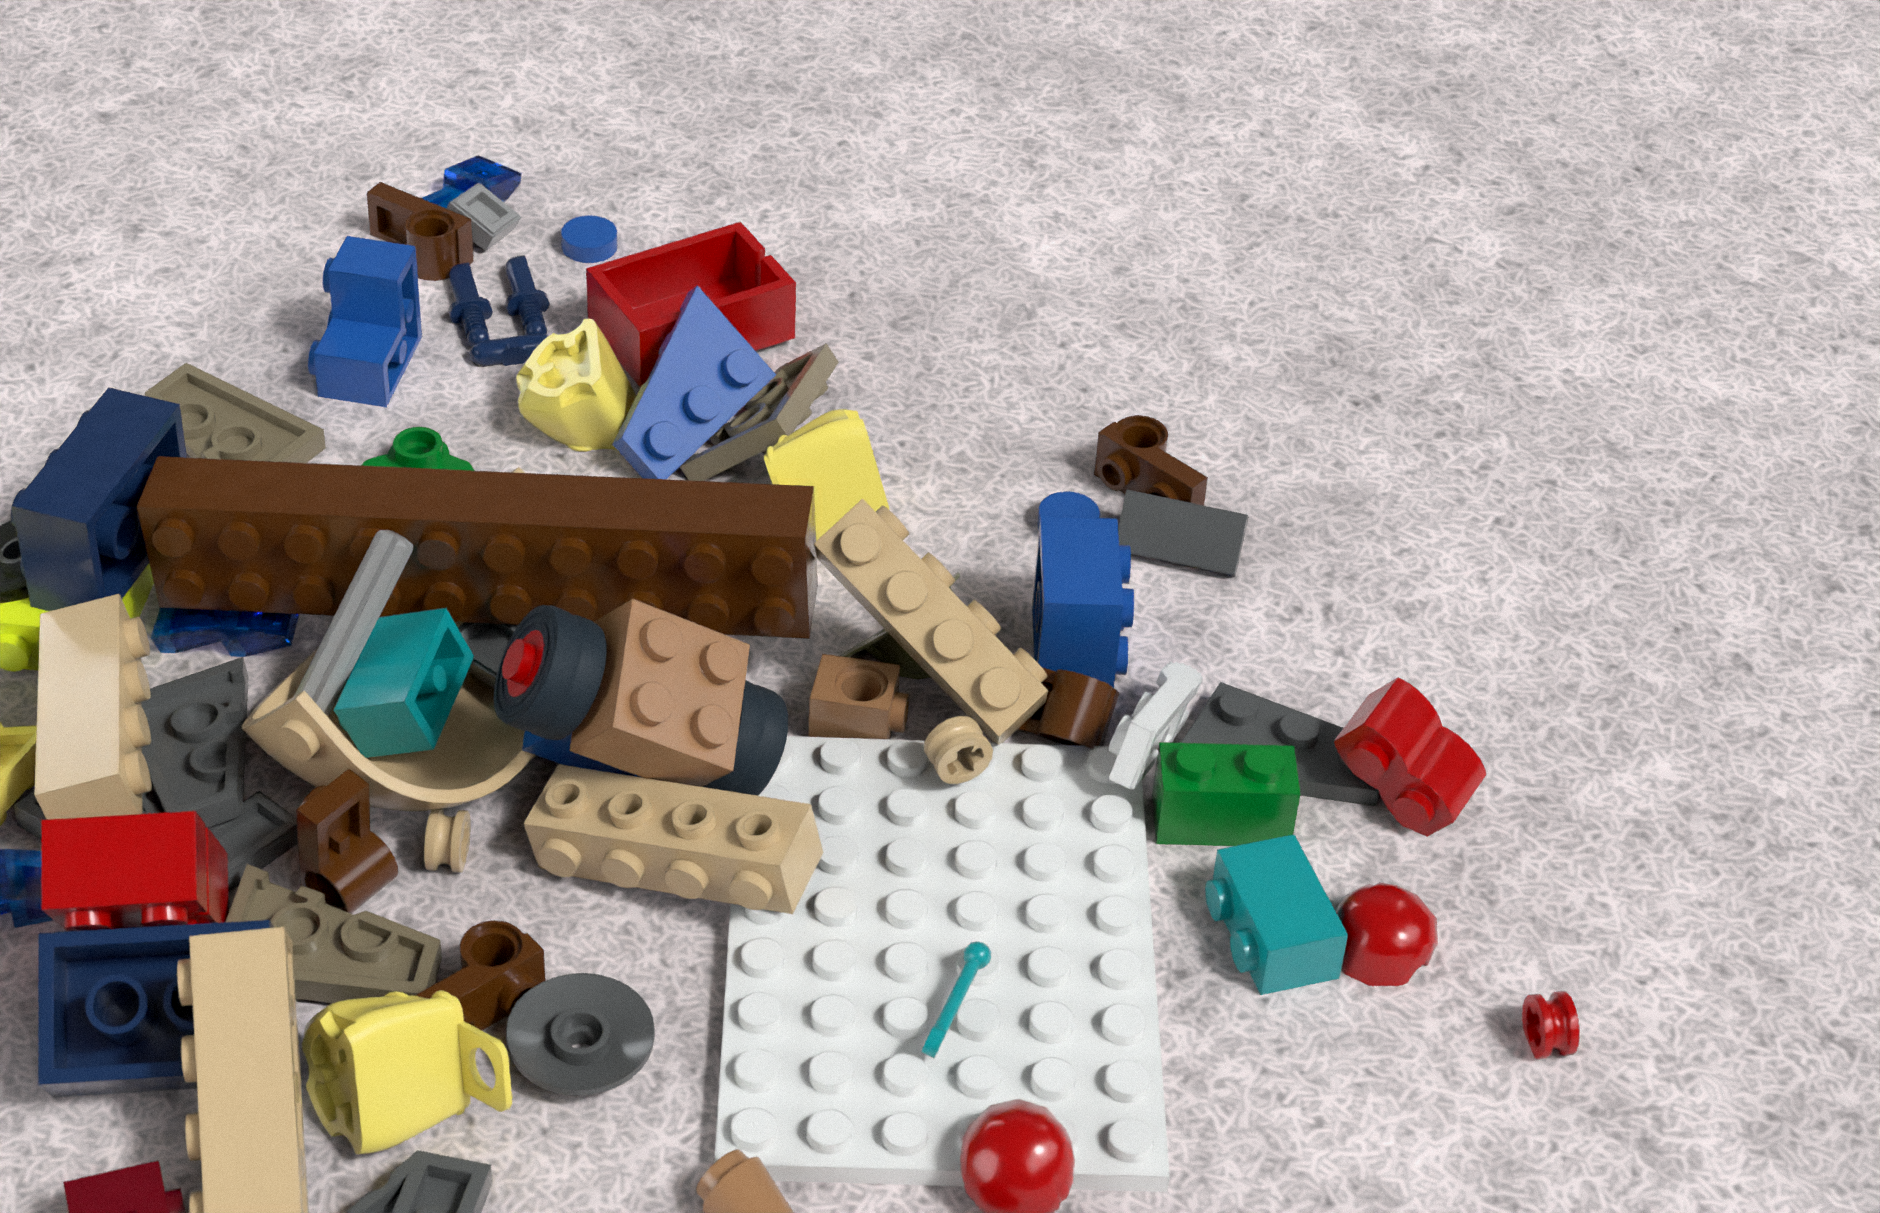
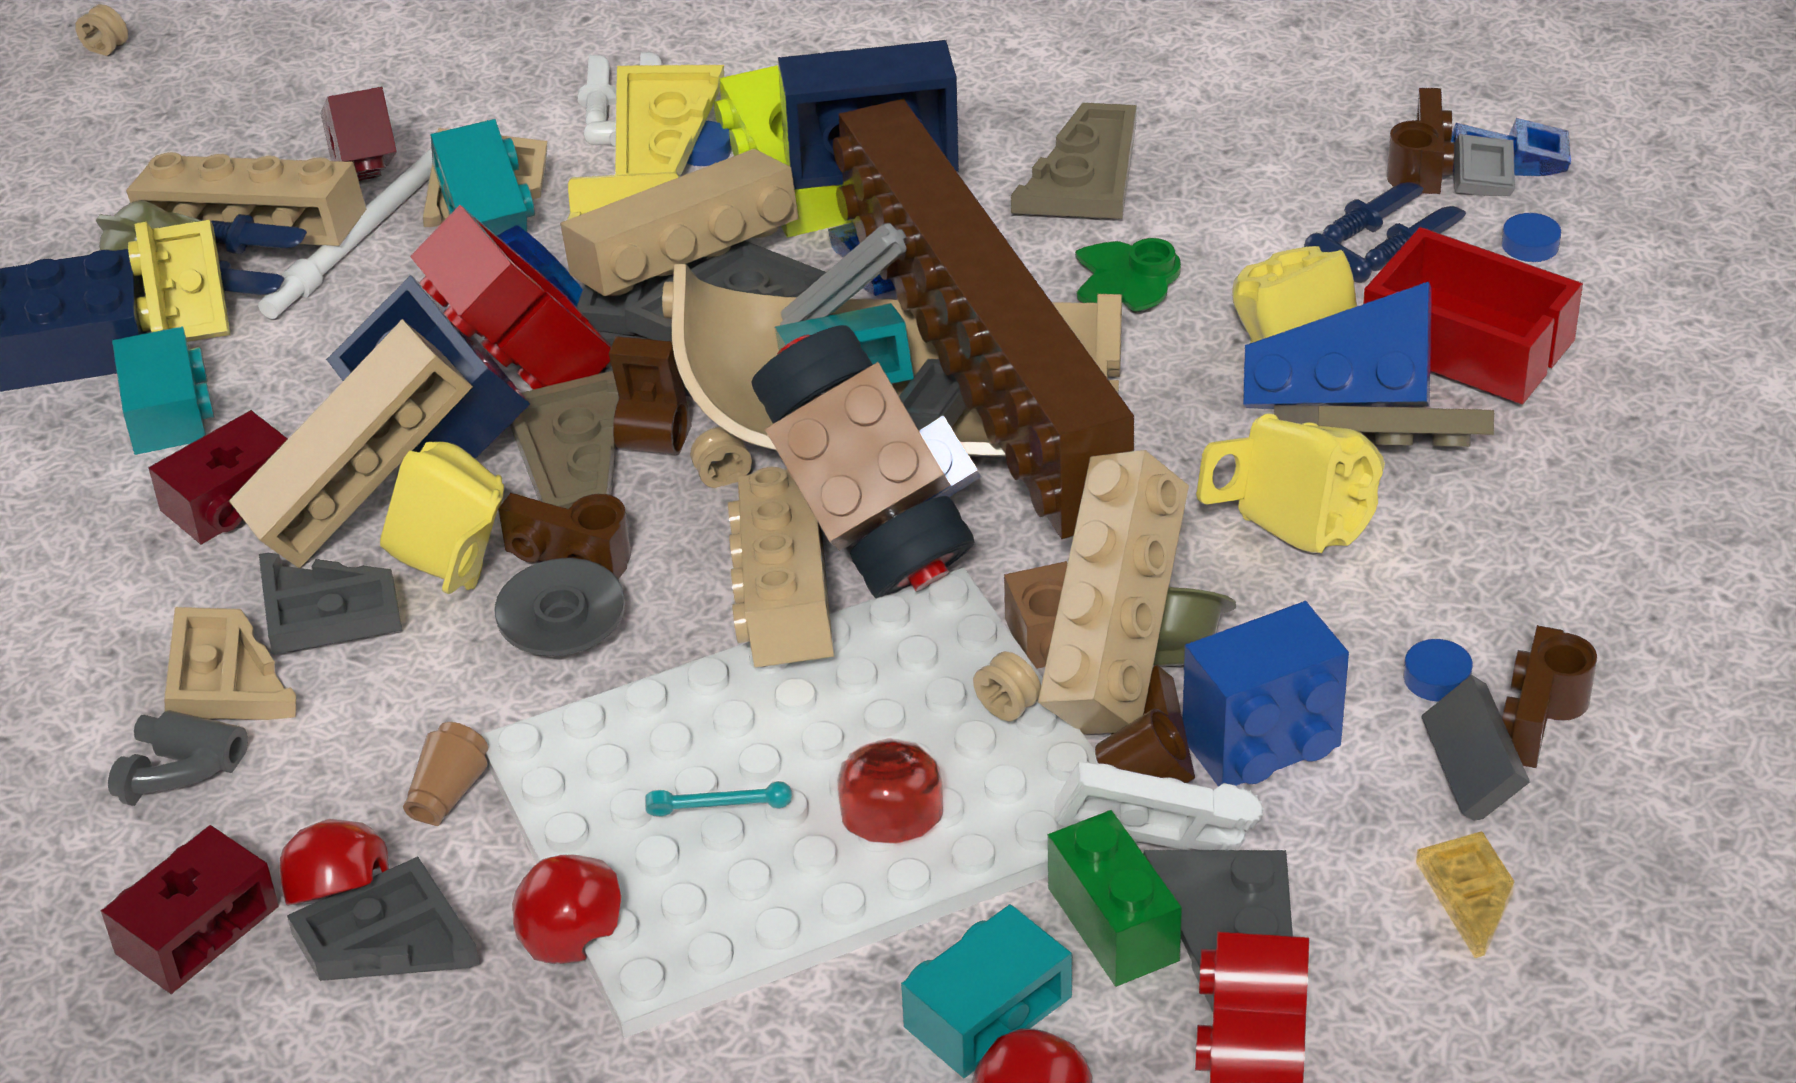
camera: 70 degrees right, 0 degrees up
(370, 323) = (1265, 171): blue brick -> none
(1029, 875) = (890, 791): none -> clear red hair
(1311, 605) = (1469, 886): none -> clear yellow tile

